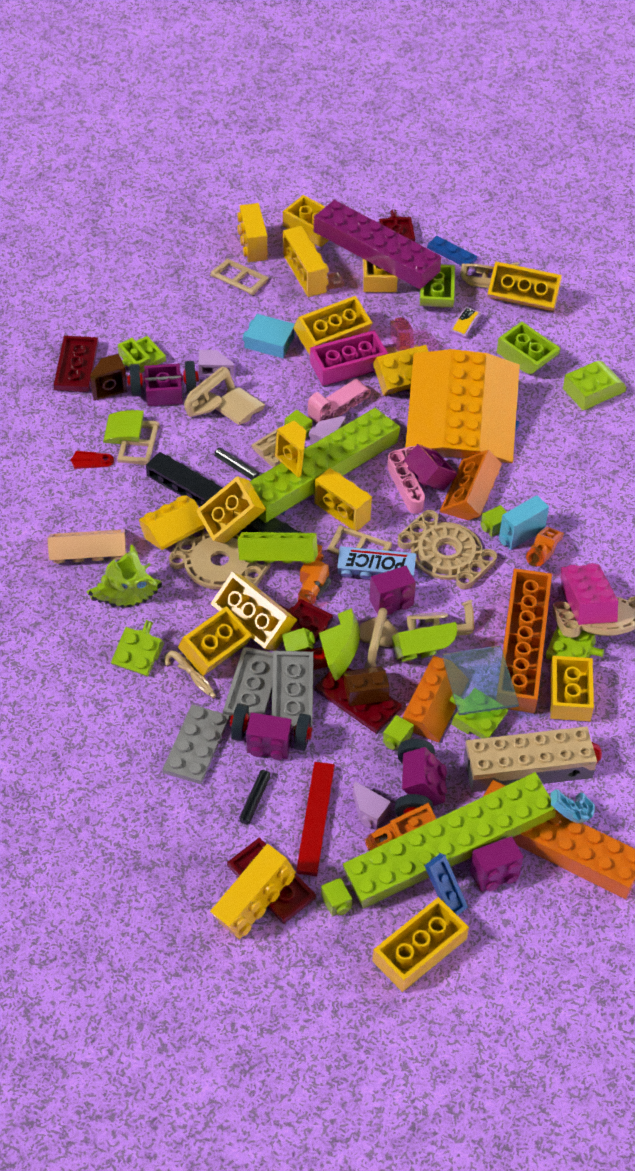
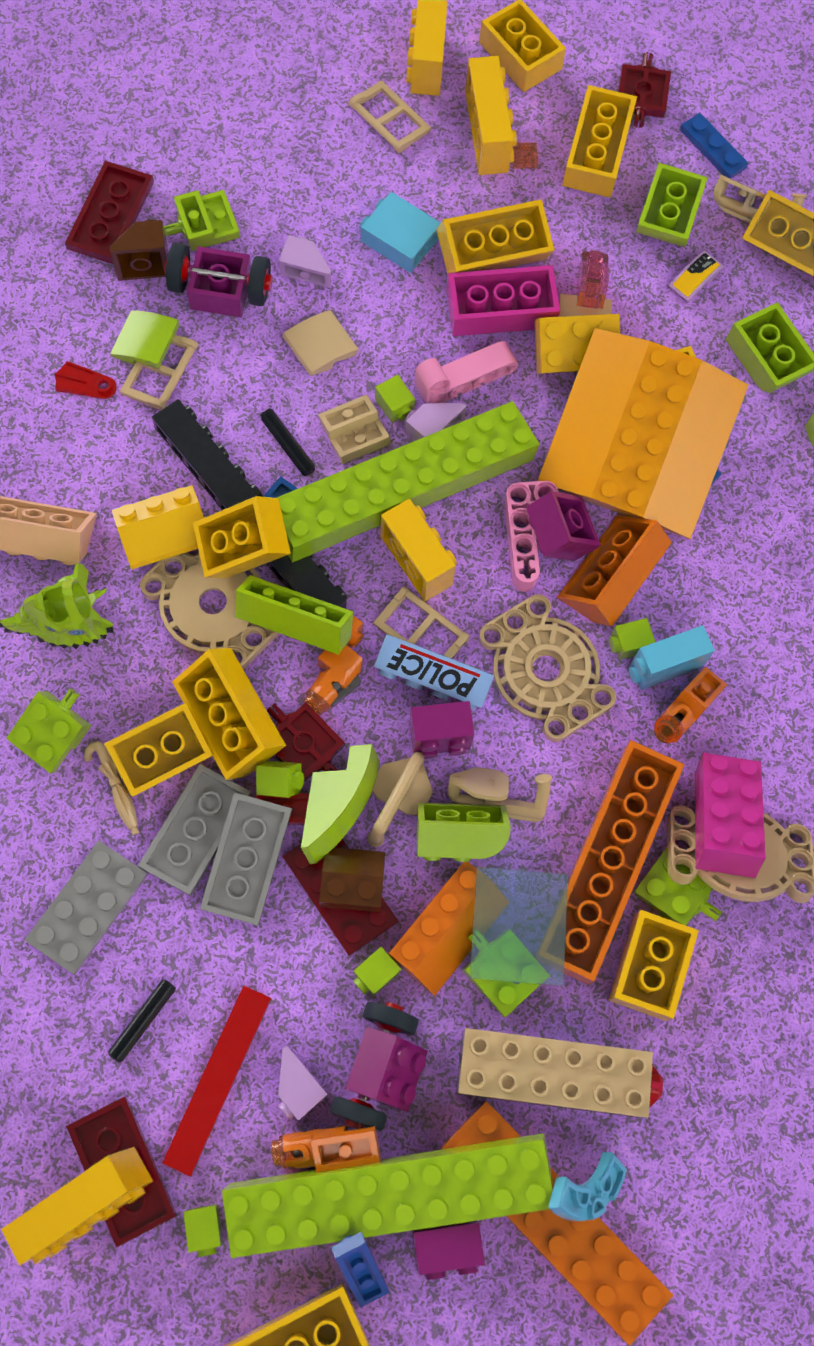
camera: 10 degrees right, 20 degrees up
(201, 400) = (269, 320): tan piece -> none
(268, 733) = (186, 934): magenta brick -> none
(291, 446) = (357, 457): yellow slope -> none
(377, 244) = (601, 115): magenta brick -> none

